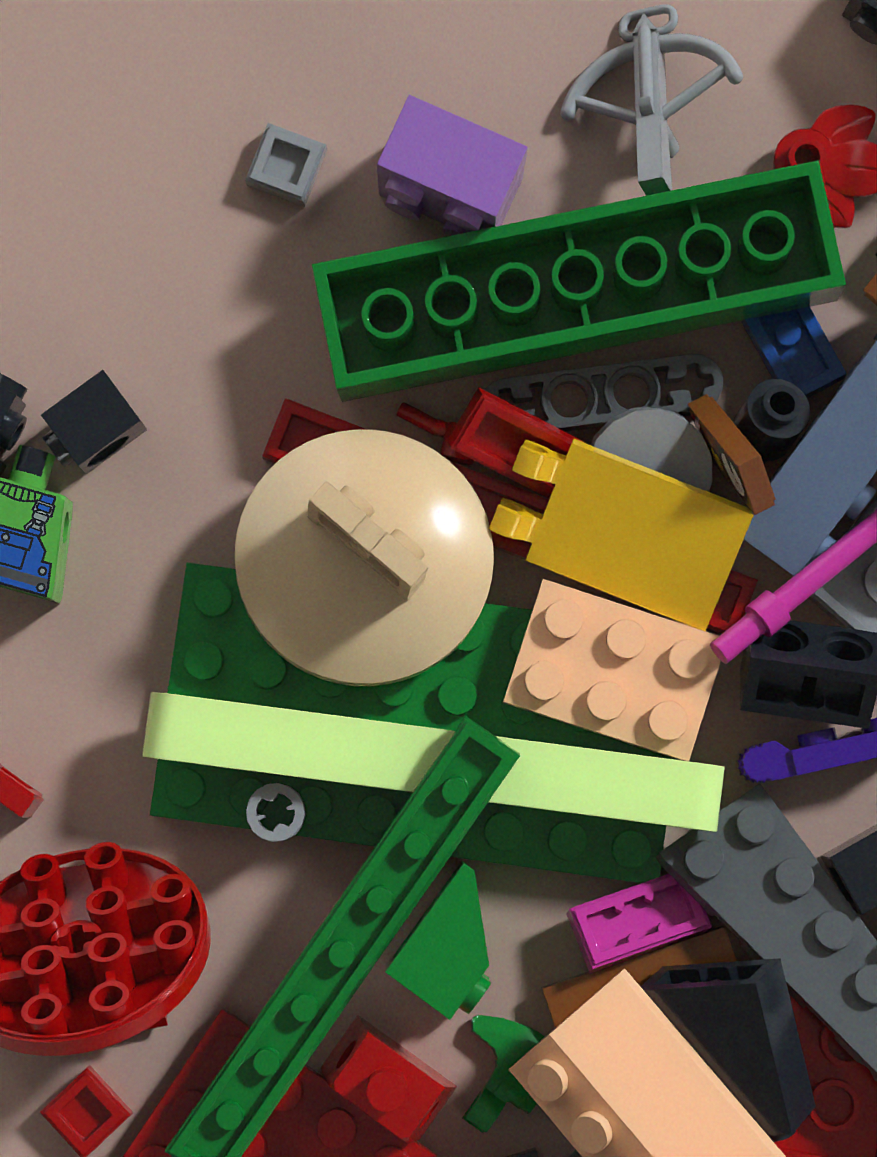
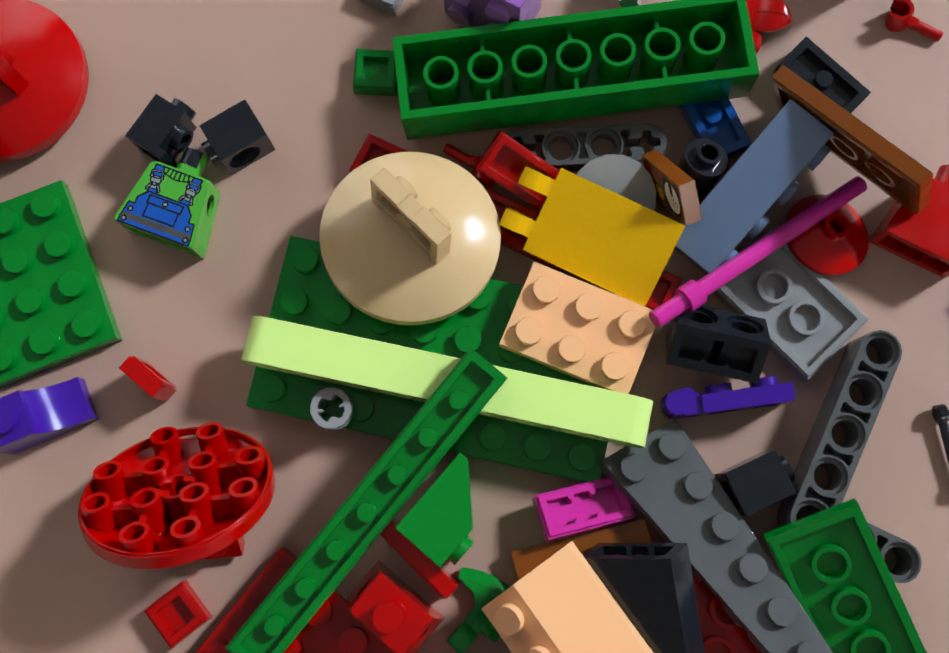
camera: 10 degrees right, 5 degrees down
(285, 301) = (374, 73): none -> green tile
(427, 1020) = (434, 575): none -> red tile

